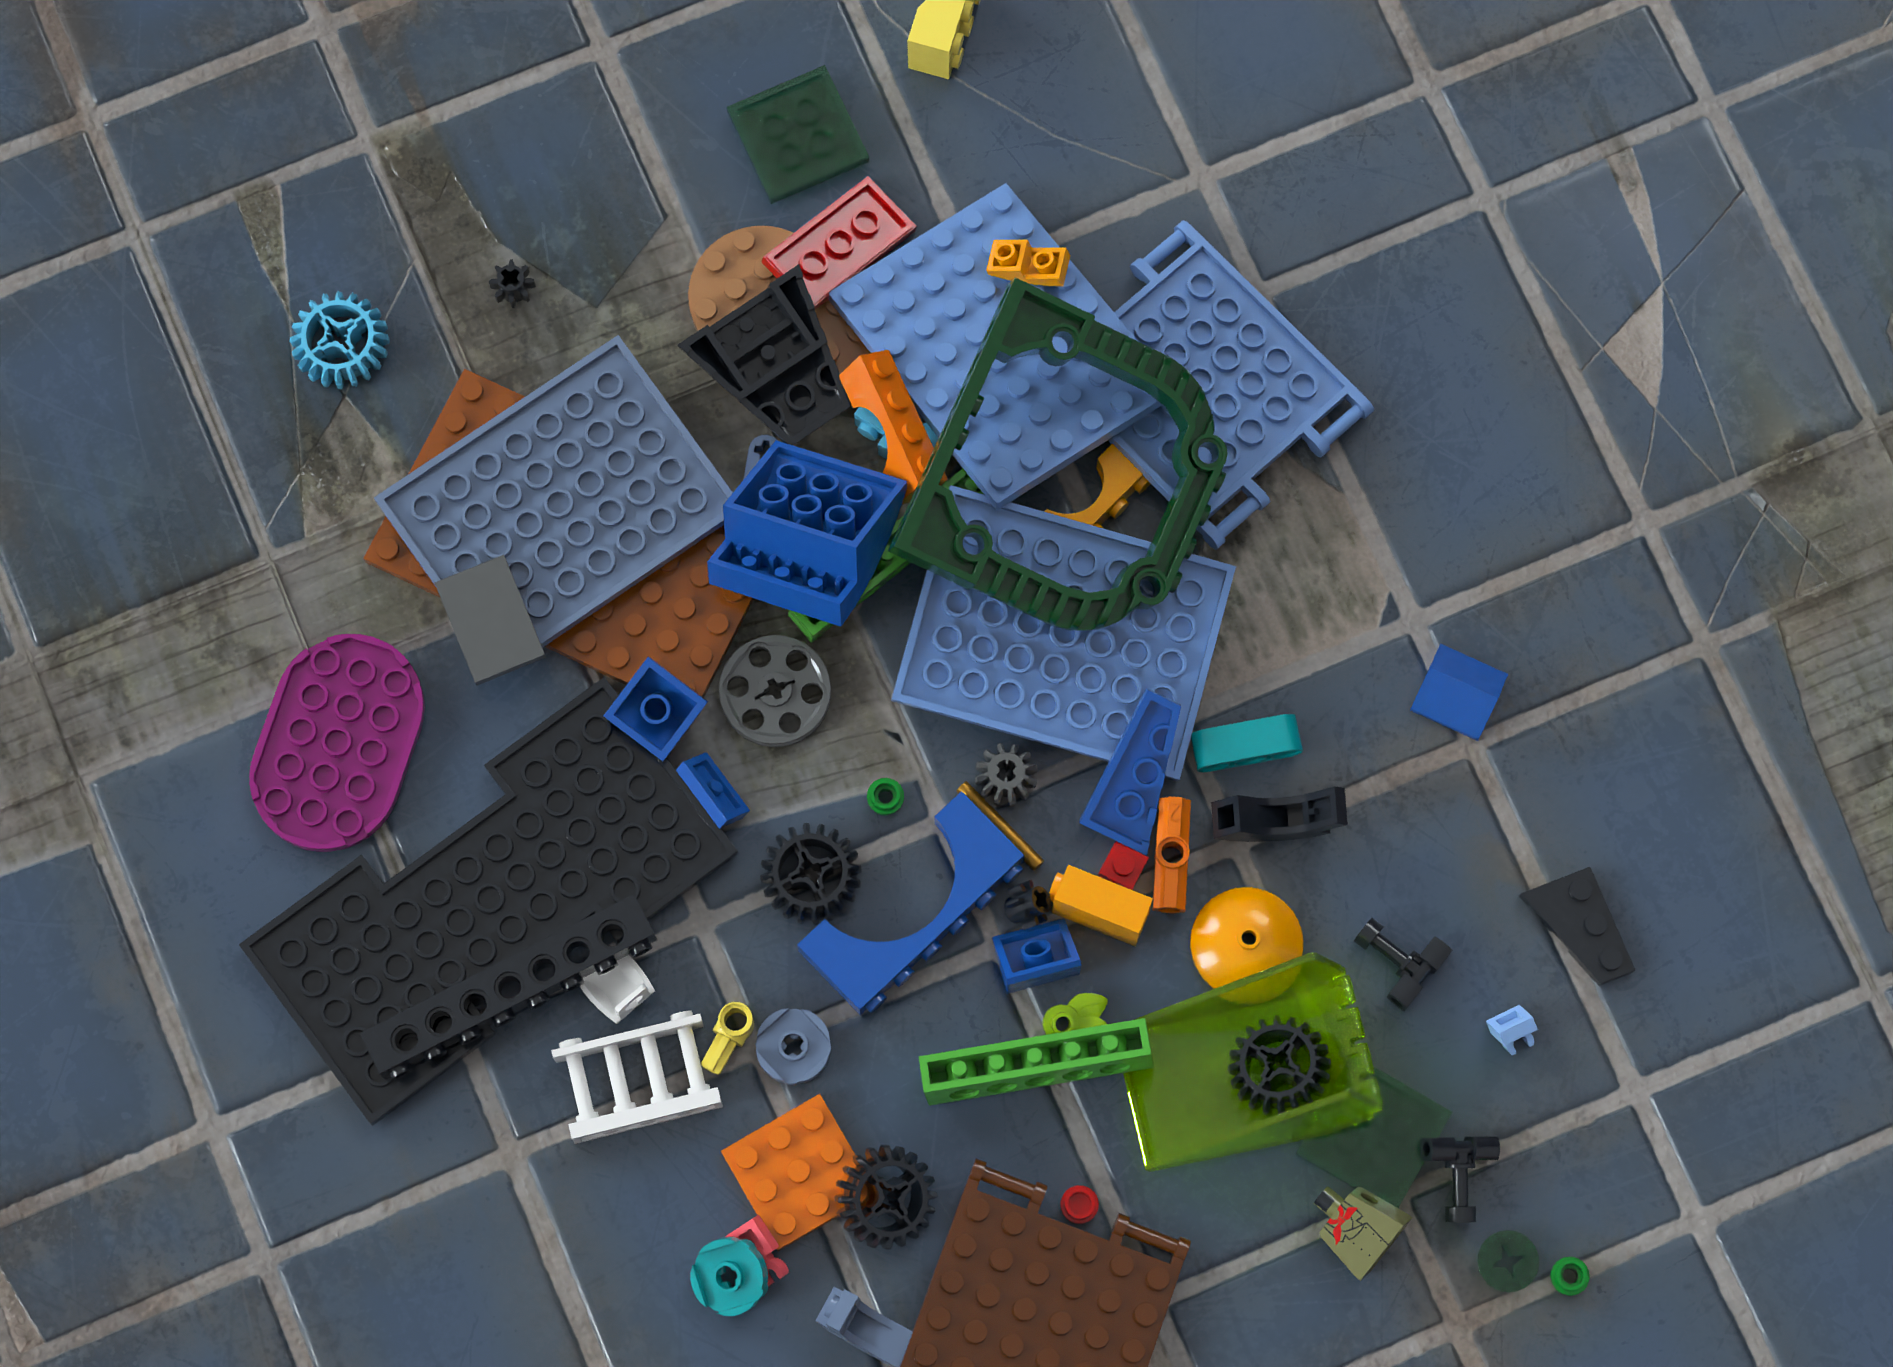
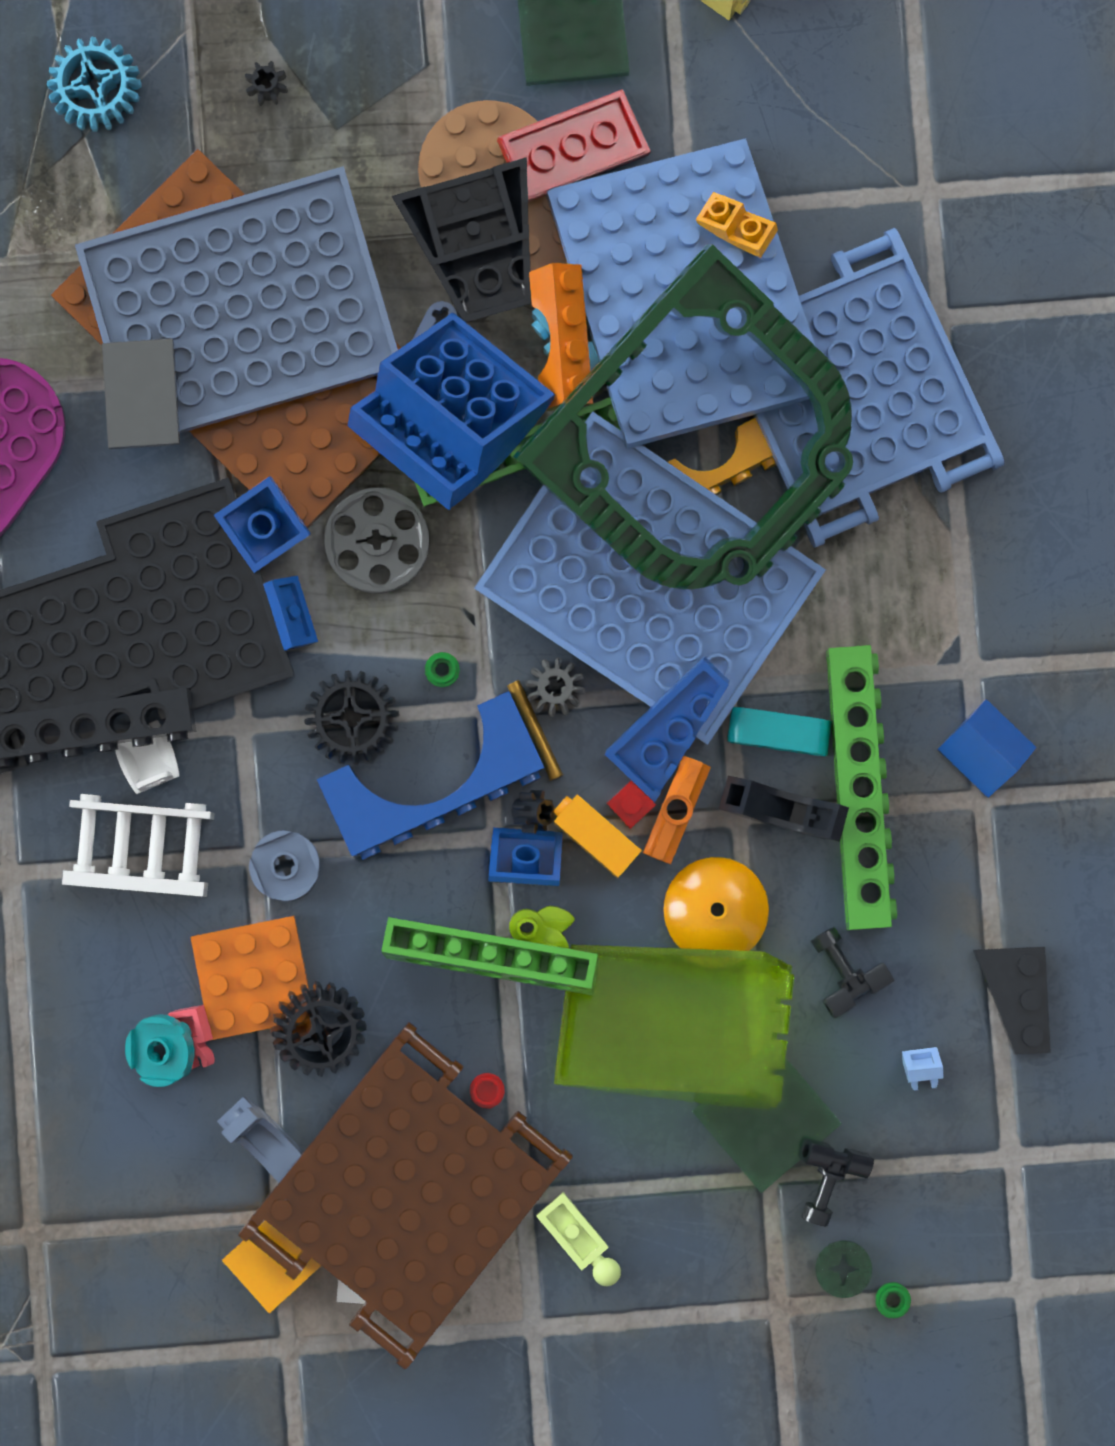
camera: 20 degrees right, 10 degrees up
(727, 1039) = (227, 840): light yellow axle -> none
(1228, 1323) = (579, 1239): none -> yellowish green plate
(1293, 1039) = (690, 1045): black gear -> none
(1360, 1227) = (723, 1198): olive torso -> none
(1391, 894) = (840, 663): none -> bright green brick

